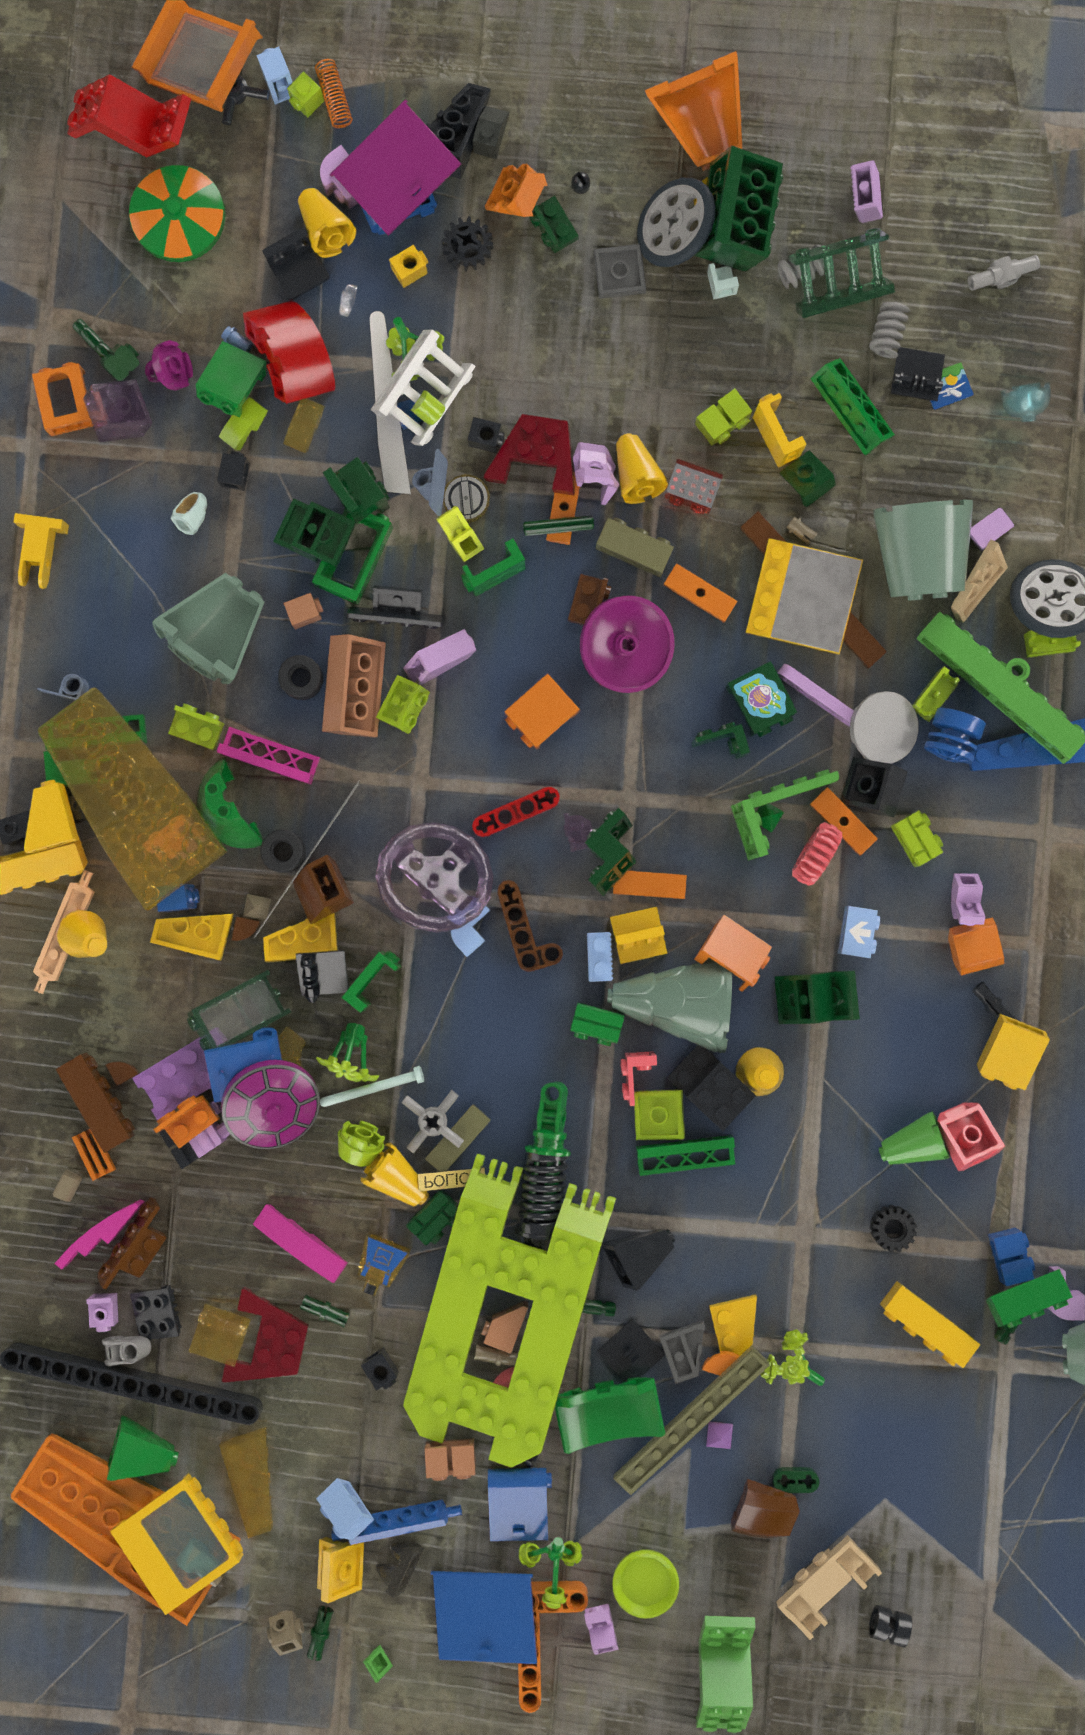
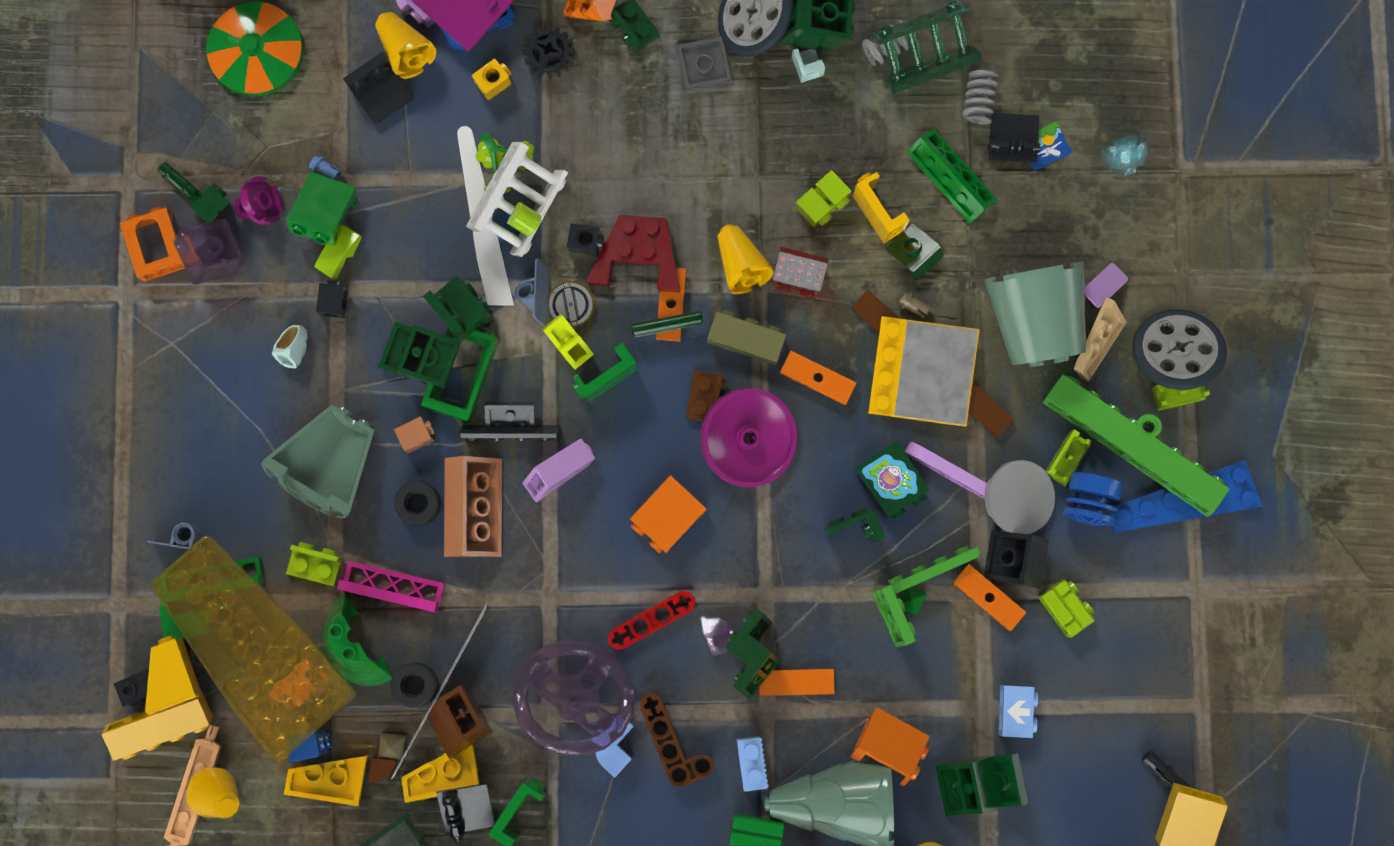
camera: 10 degrees left, 5 degrees down
(38, 545) = (138, 394): yellow piece -> none
(294, 349) = (383, 172): red panel -> none
(303, 425) = (399, 246): clear yellow slope -> none
(347, 300) = (433, 118): clear tile -> none
(403, 704) = (525, 520): lime bracket -> none
(598, 456) = (701, 250): lavender piece -> none
(638, 935) = (790, 736): yellow bracket -> none
(817, 854) = (965, 634): coral gear -> none
(966, 899) = (1124, 666): lavender brick -> none
(975, 947) = (1139, 714): orange slope -> none
(1003, 272) = (1088, 30): light grey pin -> none

